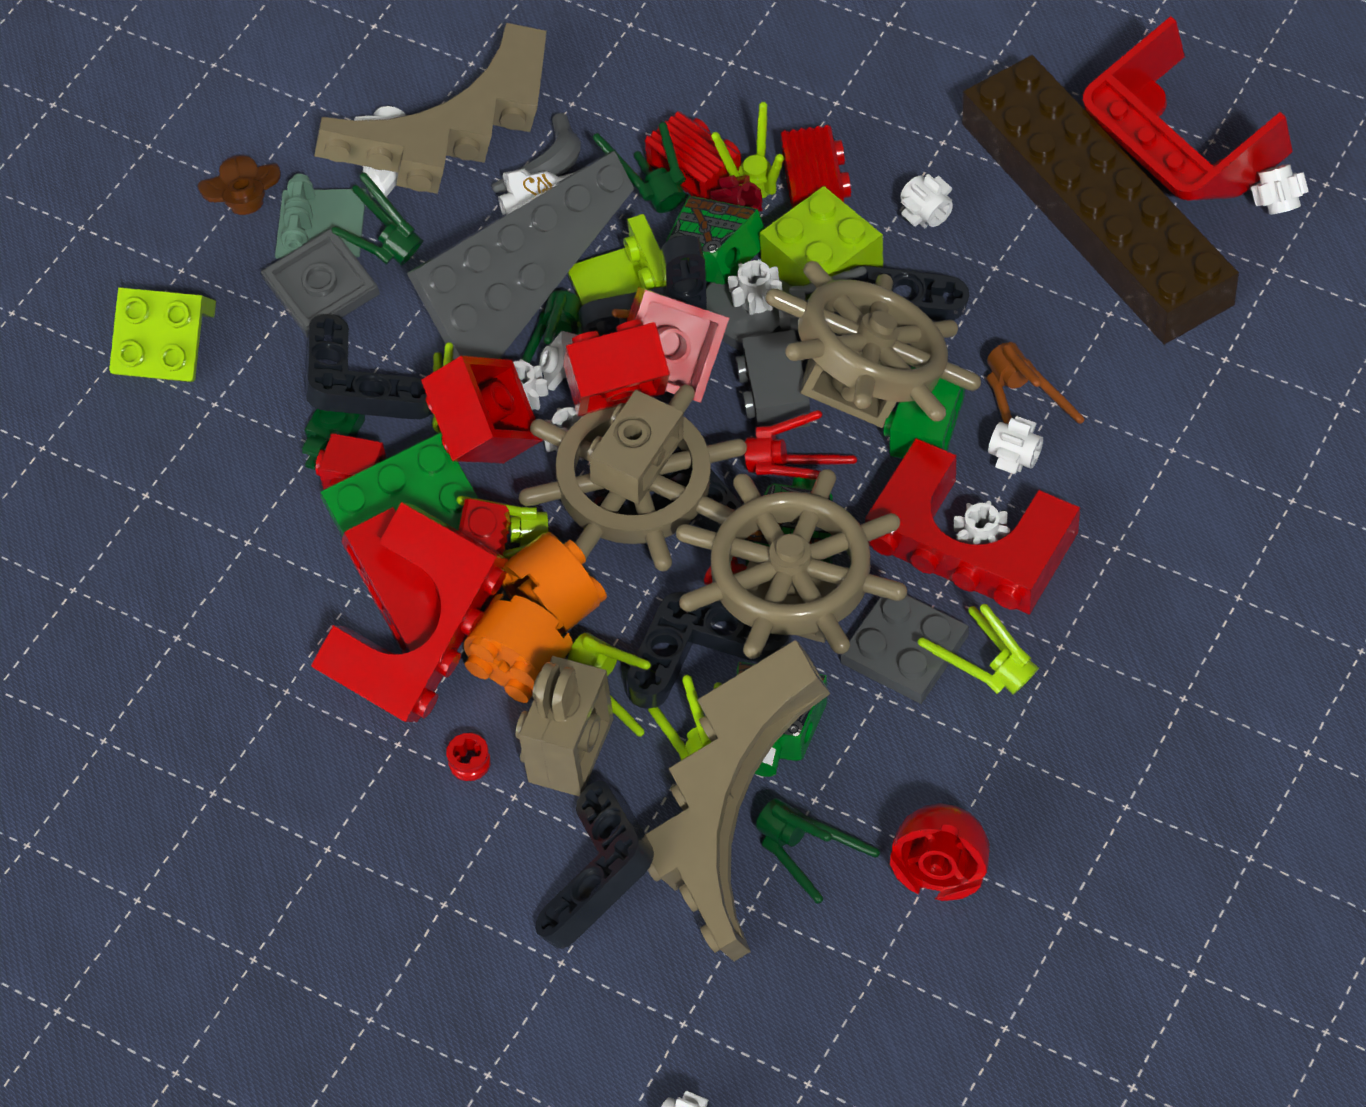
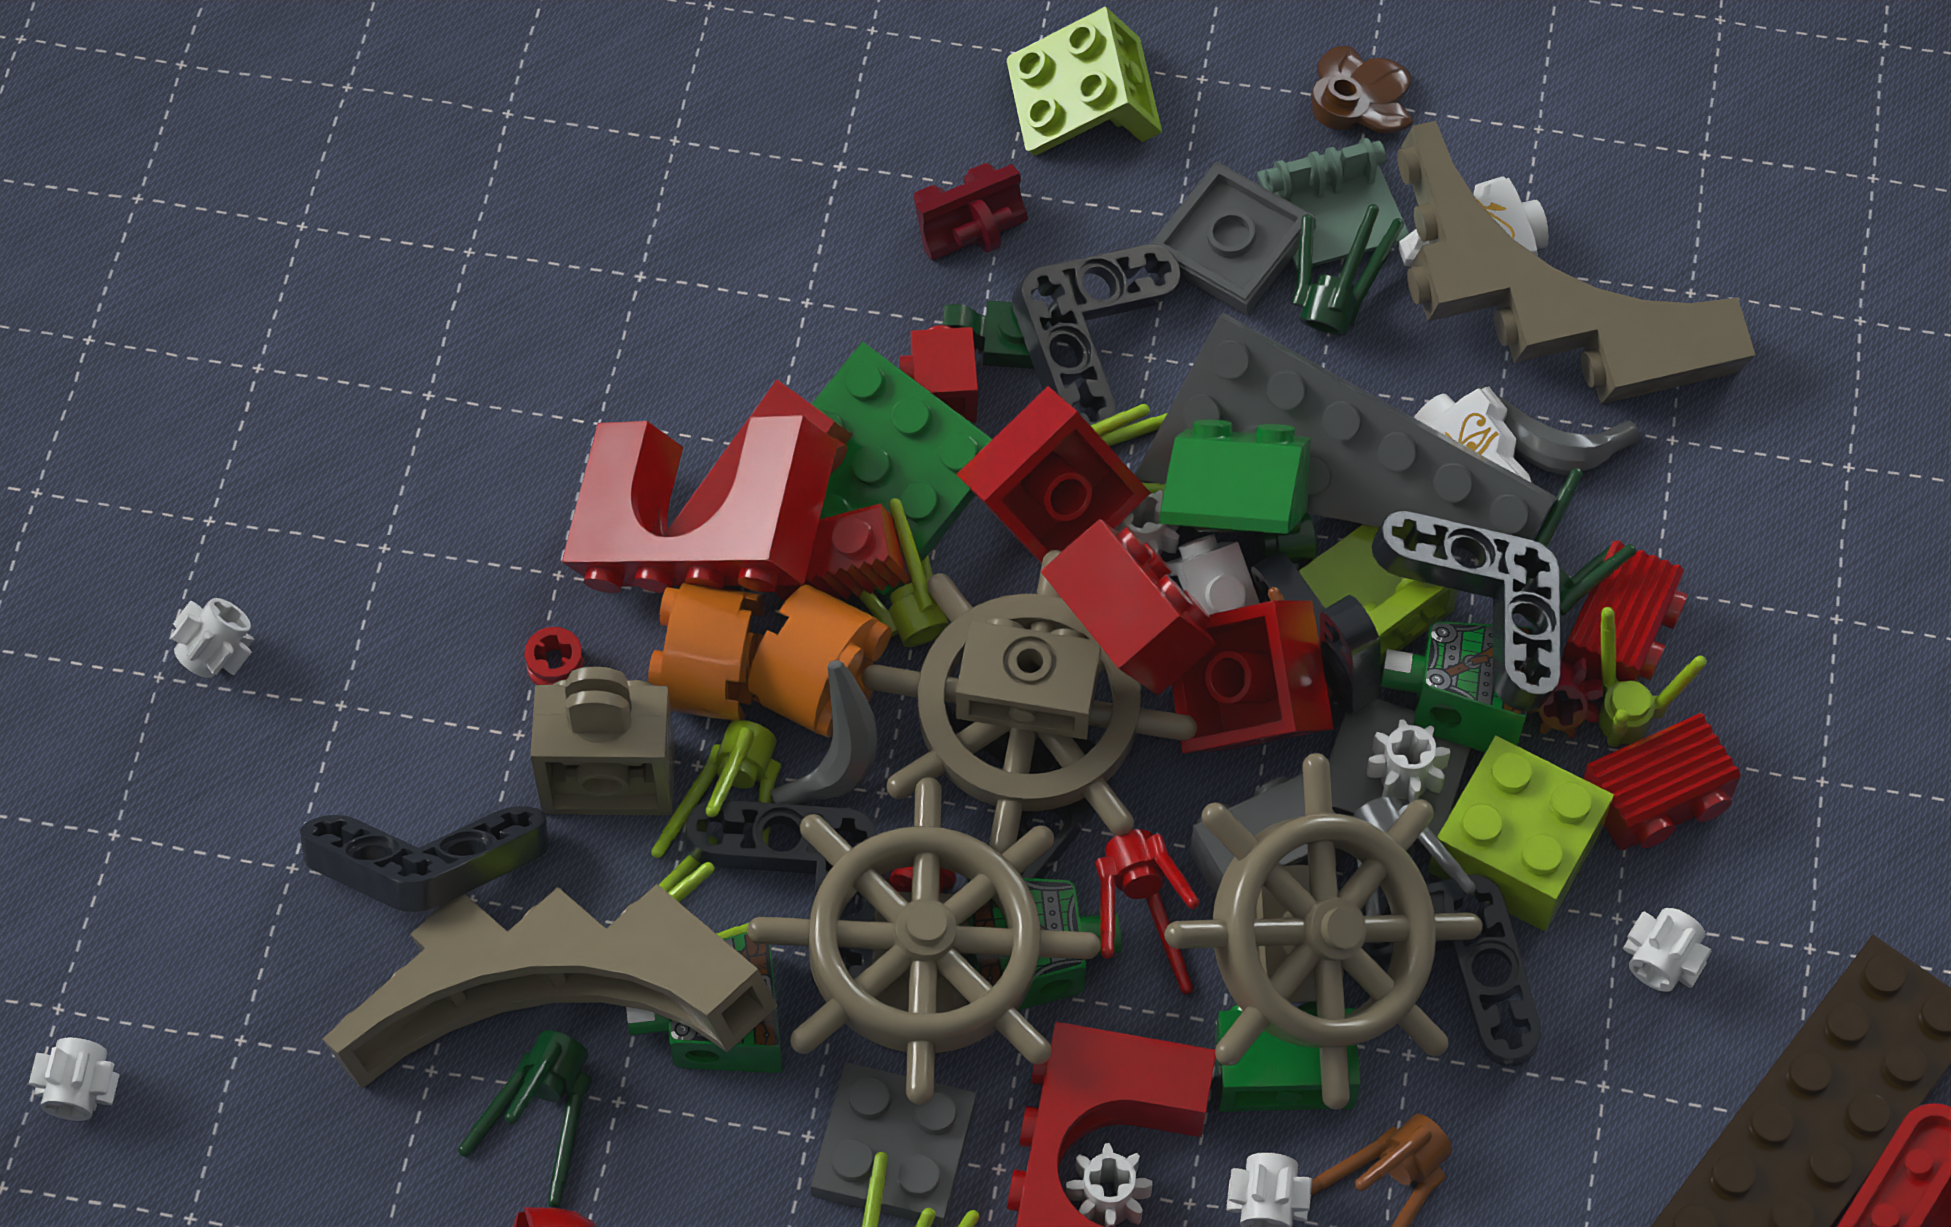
camera: 65 degrees right, 5 degrees up
(235, 417) = (971, 212): none -> dark red hips
(365, 963) = (212, 638): none -> white gear
(527, 307) = (1237, 478): none -> green slope
(624, 589) = (851, 749): none -> dark grey piece
(672, 185) = (1498, 577): none -> black beam

